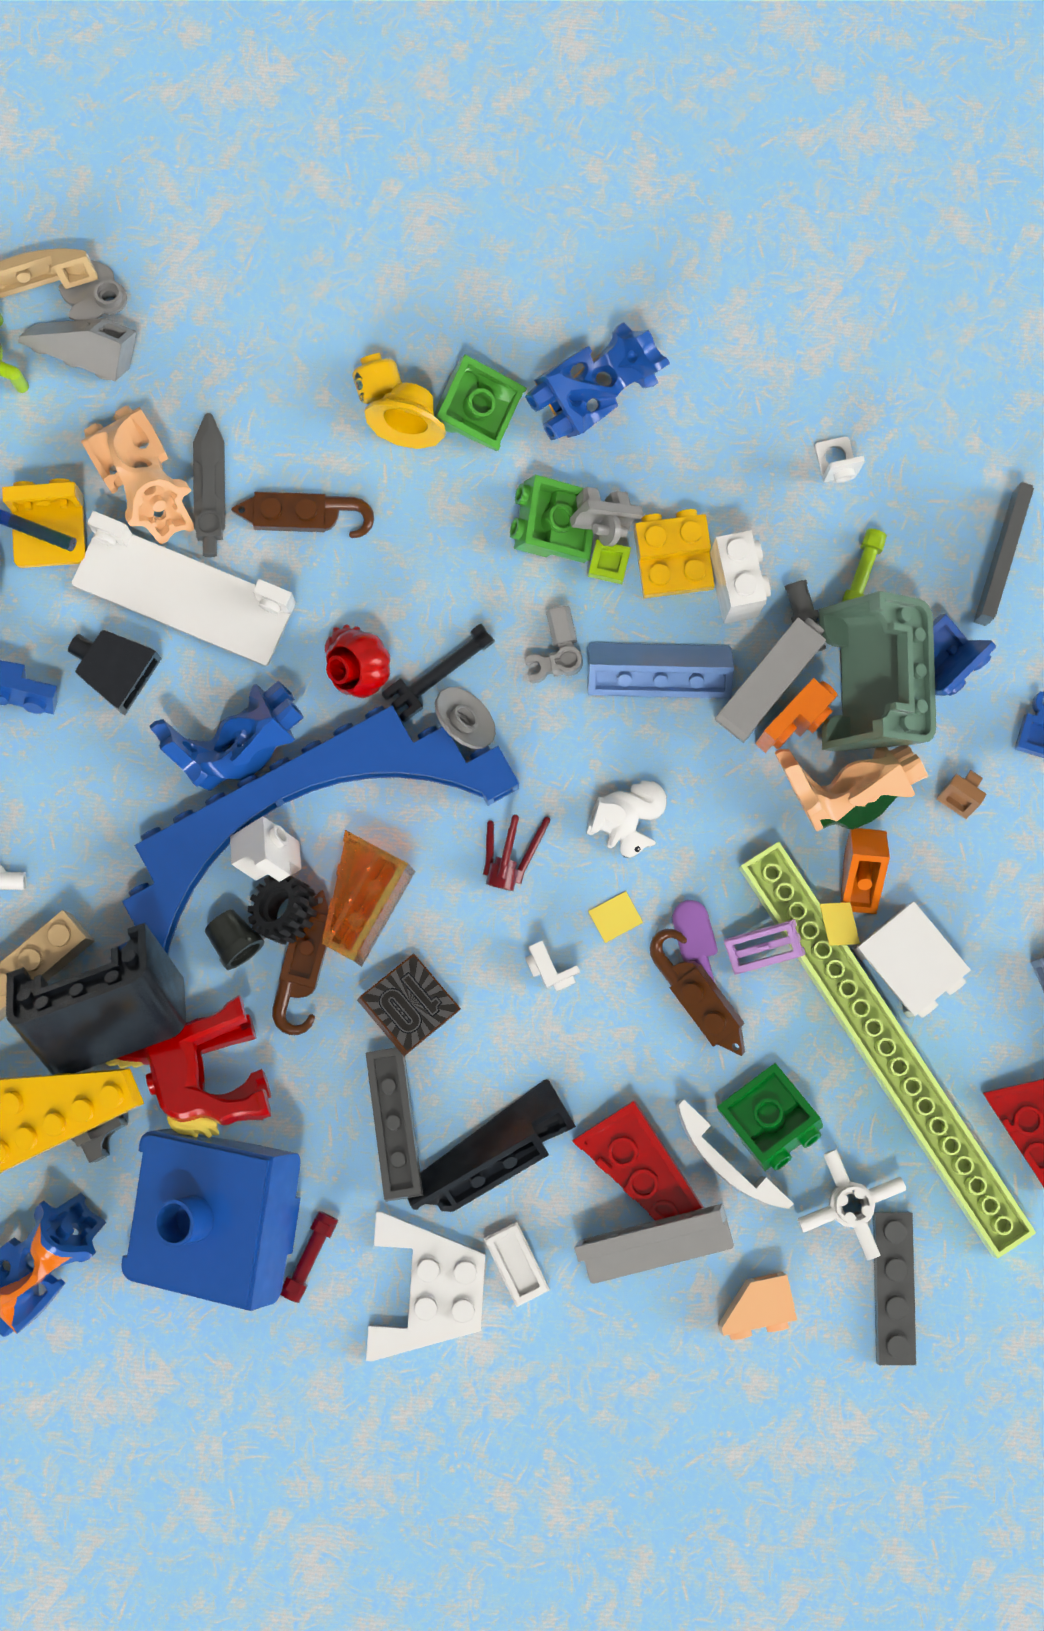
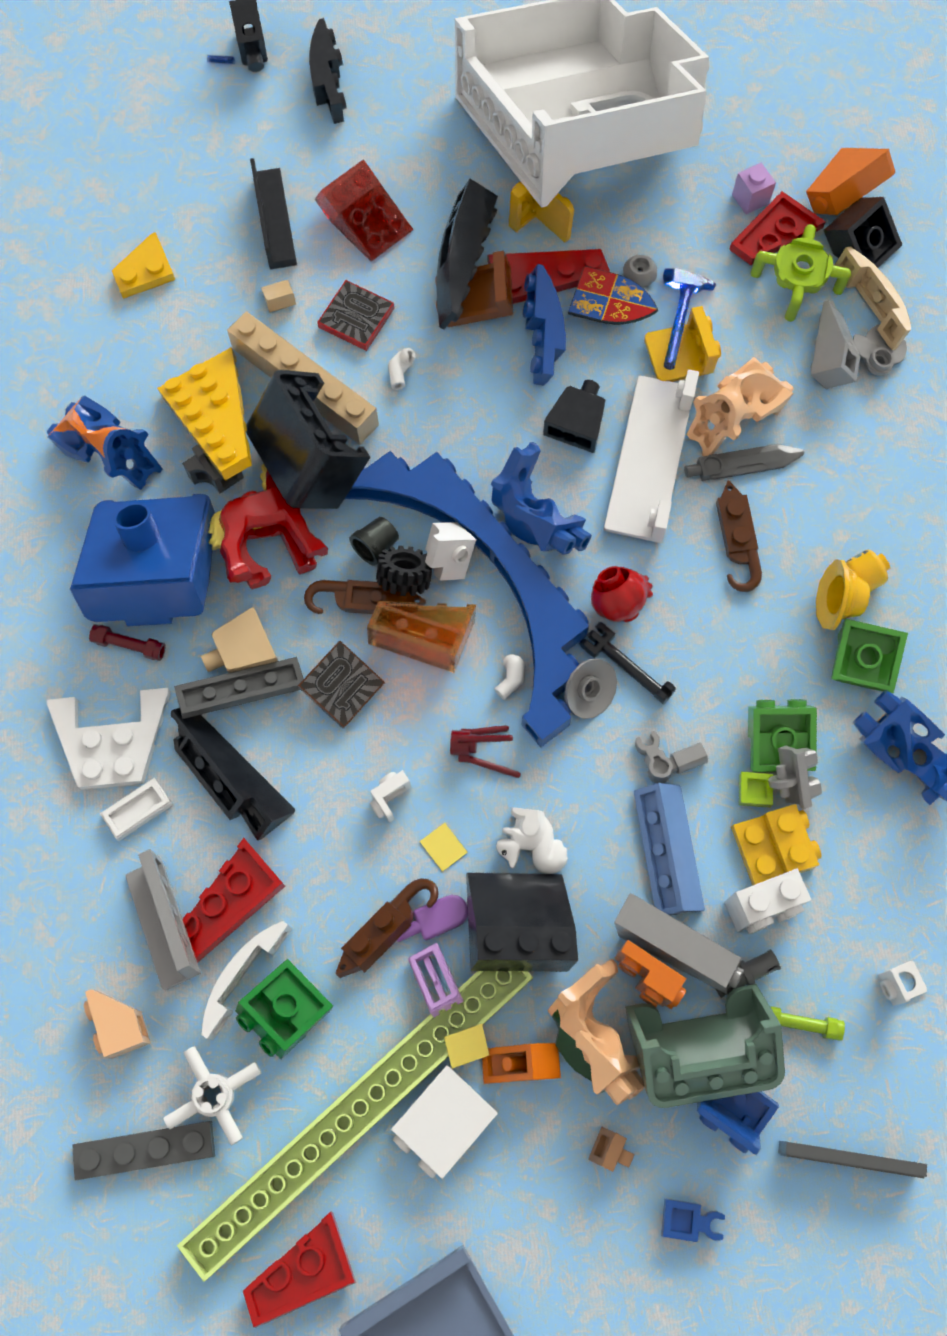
camera: 85 degrees right, 10 degrees down
(342, 1117) = (240, 644): none -> tan torso
(432, 802) = (515, 676): none -> white arm
(717, 844) = (520, 923): none -> black slope

